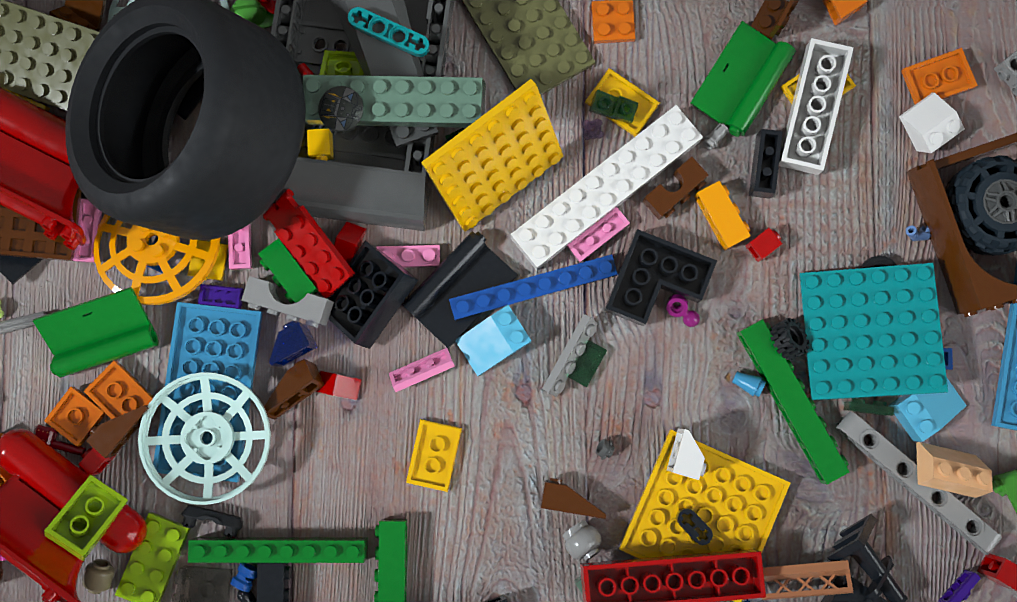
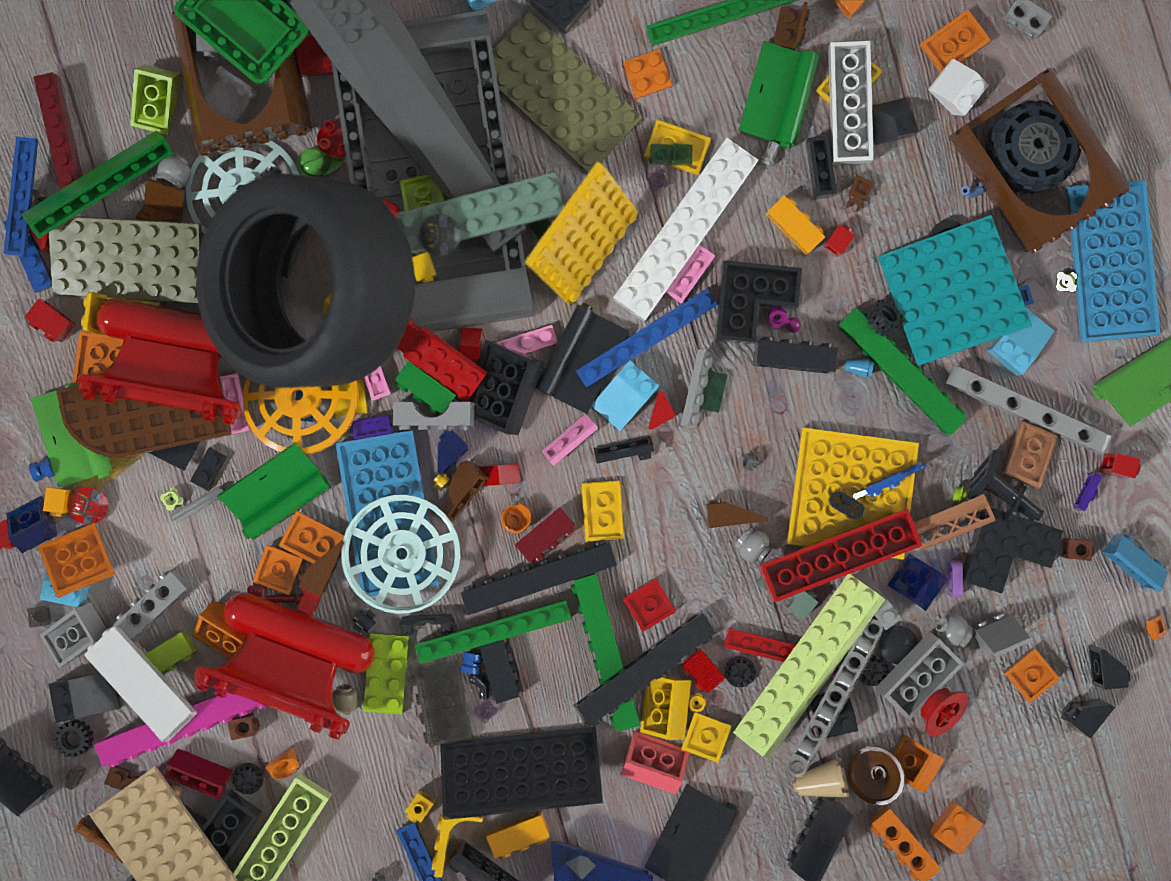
camera: 20 degrees left, 5 degrees up
(40, 290) = (208, 468): none -> black plate
(85, 518) = (325, 649): lime slope -> none
(146, 498) = (364, 621): none -> black gear
(274, 374) = (441, 481): none -> yellow plate
(339, 436) = (516, 518): none -> orange hair
(343, 507) = (539, 578): none -> black brick
(365, 463) = (545, 535): none -> dark red brick
(387, 35) = (457, 154): teal beam -> none
(453, 571) = (649, 605): none -> red plate
(490, 398) = (640, 446): none -> black hinge
(526, 369) = (661, 412): none -> red slope
(684, 351) = (794, 356): none -> black brick
(686, 456) = (822, 446): white slope -> none
(690, 177) = (757, 198): reddish brown arch -> none
(750, 515) = (890, 481): none -> blue plate
(799, 200) = (860, 191): none -> reddish brown plate
(819, 552) = (960, 494): none -> lime plate
(853, 140) = (892, 121): none -> black slope
(877, 408) = (977, 356): clear green plate -> none
(907, 531) = (1030, 454): none -> nougat tile
(952, 471) = (1054, 392): light nougat slope -> none
(997, 362) = (1062, 277): none -> plate

